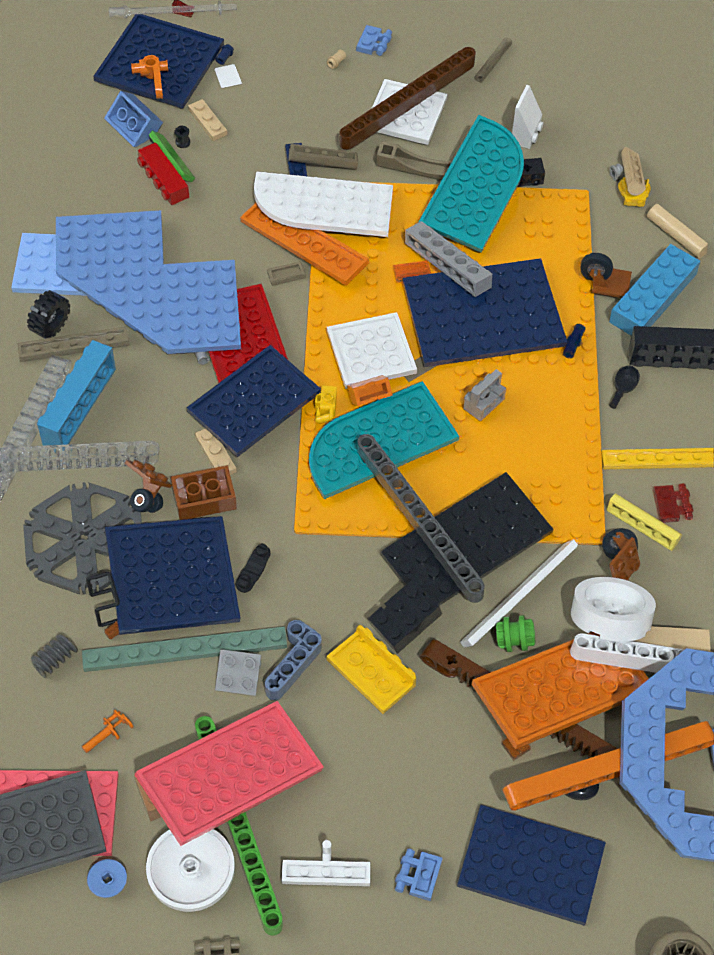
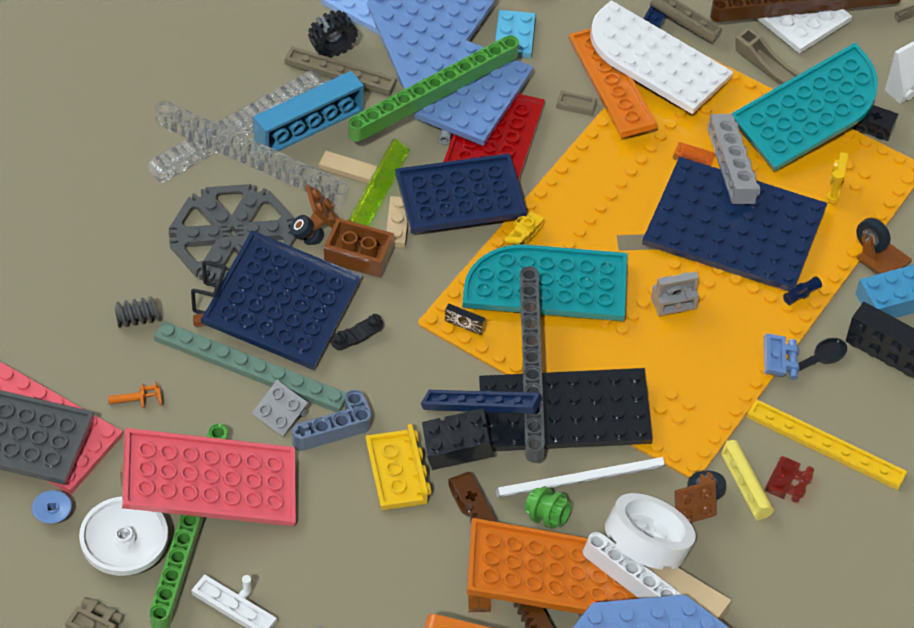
camera: 30 degrees right, 5 degrees down
(141, 426) = (347, 167): none -> tan tile
(170, 321) = (432, 88): none -> bright green beam
(177, 427) = (379, 183): none -> clear neon green tile
(194, 238) = (518, 25): none -> medium azure plate
(336, 508) = (465, 319): none -> black tile
(370, 390) = (570, 235): orange brick -> none
(371, 349) = (601, 204): white plate -> none
(404, 573) = (489, 400): none -> dark blue plate
(537, 233) = (837, 178): none -> yellow plate
(597, 404) = (775, 356): none -> medium blue plate

